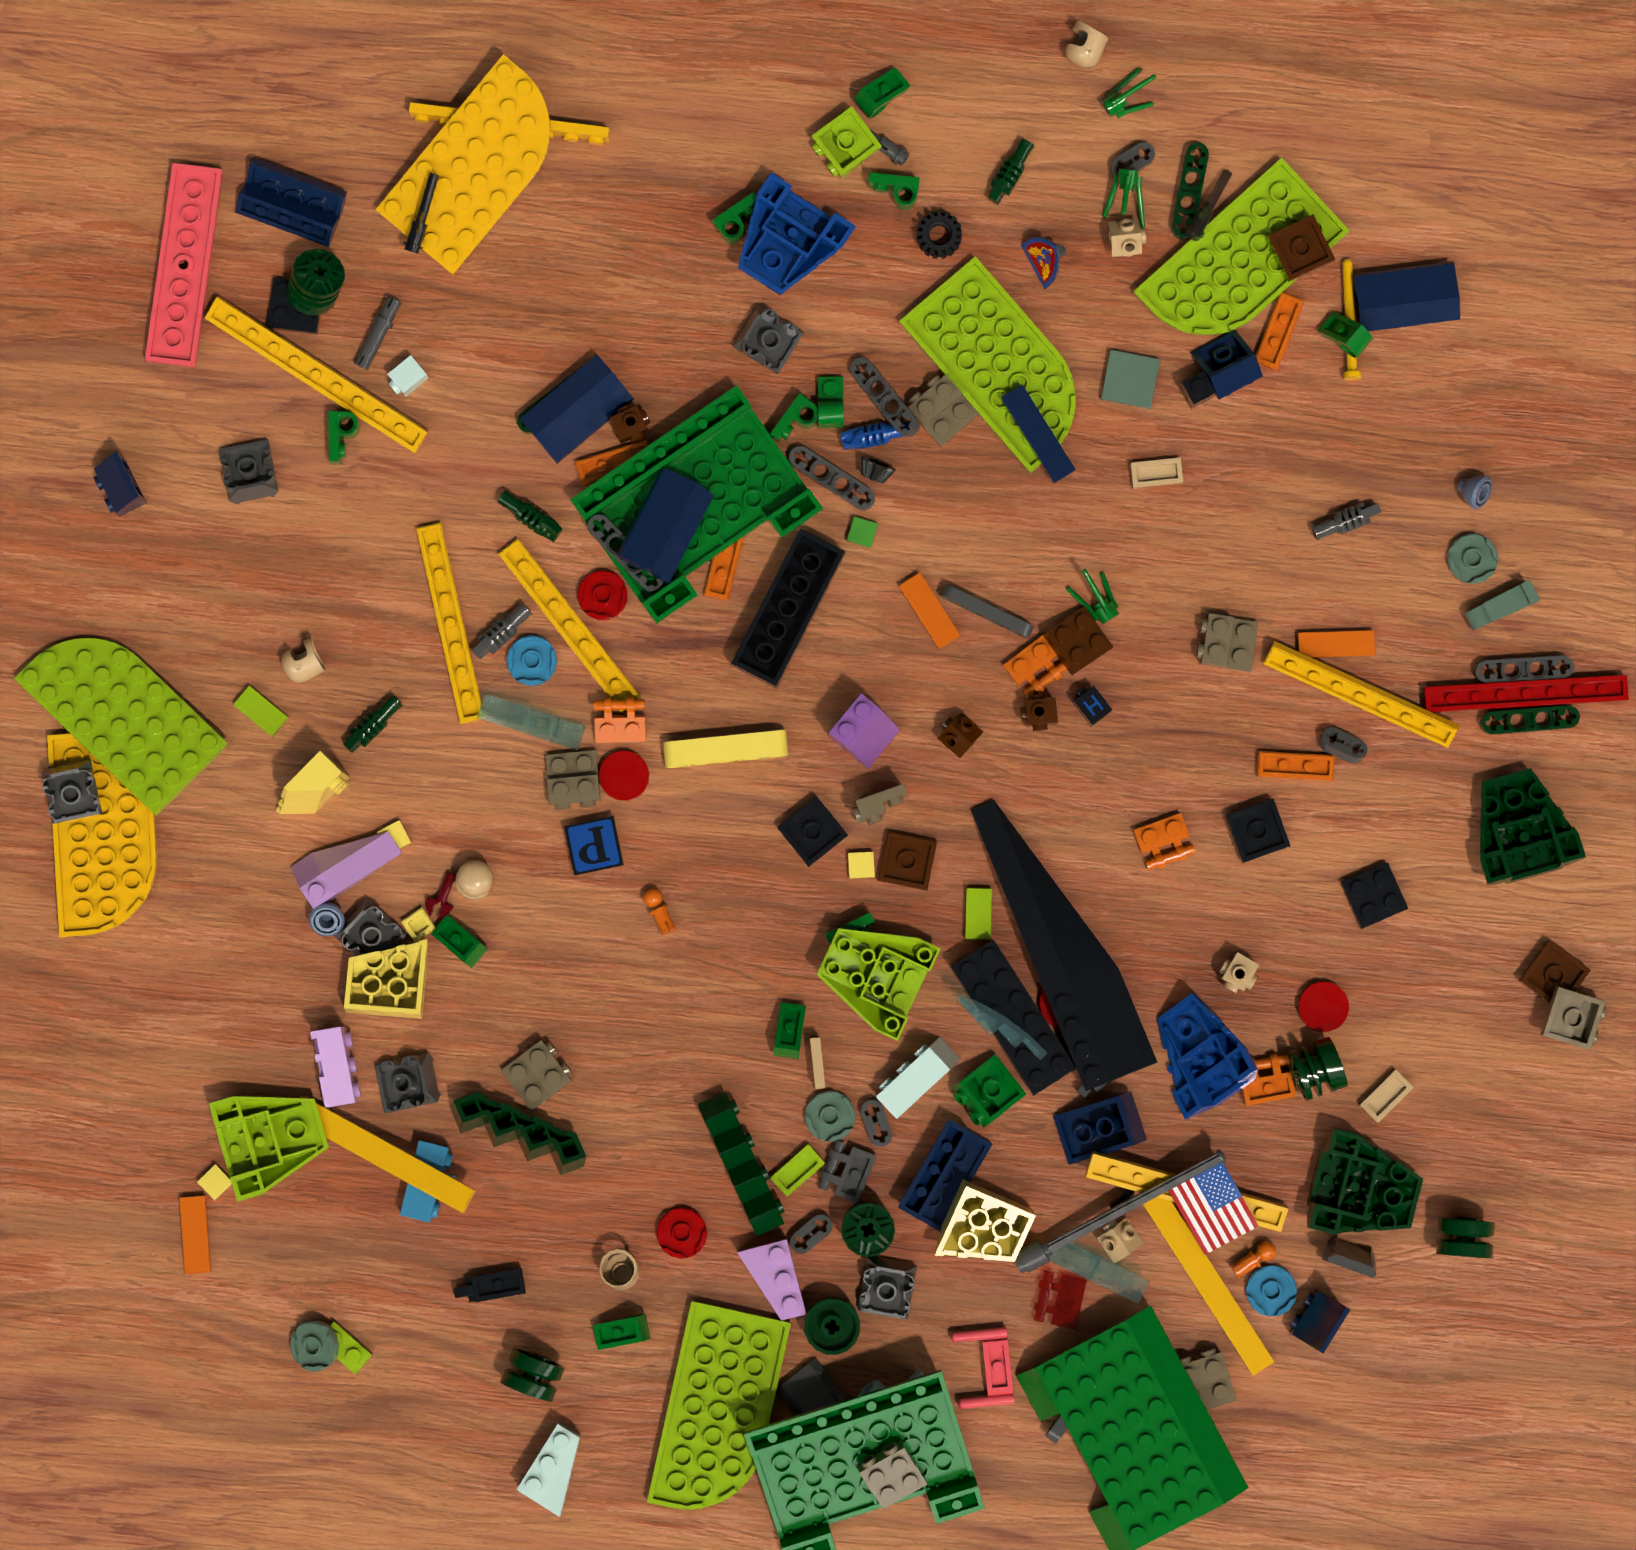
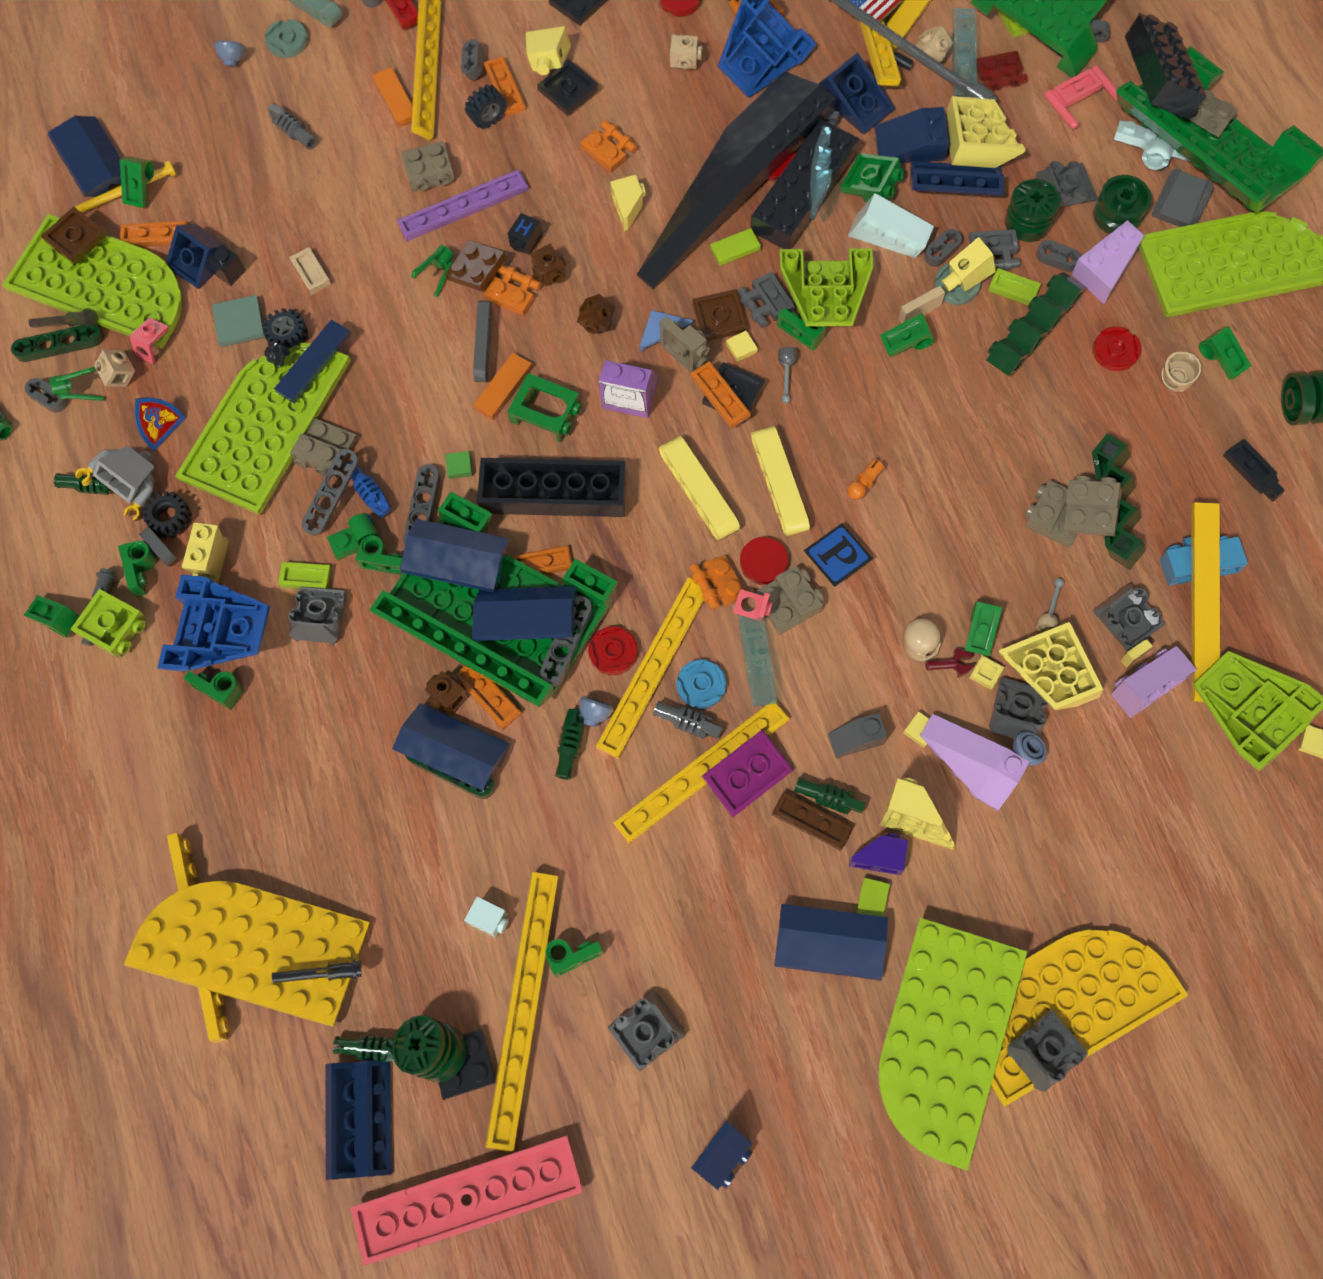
camera: 115 degrees left, 15 degrees down
(246, 660) = (831, 942): none -> dark blue slope
(298, 742) = (883, 855): none -> dark purple slope
(303, 666) = (811, 878): tan helmet -> none
(345, 231) = (365, 1047): none -> dark green hinge
(359, 698) = (812, 821): none -> reddish brown tile
(368, 1067) = (1136, 653): none -> light yellow tile
(378, 332) = (455, 967): dark grey pin -> none
(413, 775) = (858, 736): none -> dark grey slope
(427, 661) = (747, 773): none -> magenta tile
(438, 1006) = (1048, 620): none -> hinge
(519, 1100) = (1092, 506): none -> dark tan plate
(550, 552) = (594, 710): none -> sand blue brick
(570, 744) = (762, 607): none -> coral bracket
(696, 829) = (780, 481): none -> light yellow beam
(756, 485) = (454, 555): none -> dark blue slope
(811, 814) = (720, 394): none -> orange tile
(813, 341) = (302, 574): none -> lime tile
(823, 902) = (786, 357): none -> hinge
(827, 1125) = (970, 267): none -> light yellow torso
(874, 256) = (205, 551): none -> light yellow hips
(876, 469) = (398, 473): pearl dark grey piece -> none
(877, 666) = (559, 425): none -> green panel
(900, 922) = (771, 295): none -> dark grey plate
(907, 214) = (157, 546): none -> dark grey beam
(920, 795) = (652, 330): none -> medium blue tile
(958, 1449) = (1165, 66): none -> black brick
(994, 209) = (124, 473): none -> light grey torso
(1019, 1158) = (914, 136): none -> dark blue slope
(1060, 400) = (276, 353): none -> black plant
(1083, 829) = (628, 199): none -> light yellow slope
(1098, 414) = (281, 323): none -> black wheel
(1146, 283) = (145, 337): none -> coral bracket
(1163, 659) = (462, 205): none -> medium lavender tile
(1265, 730) = (485, 106): none -> black wheel
(1309, 826) = (547, 48): none -> light yellow torso

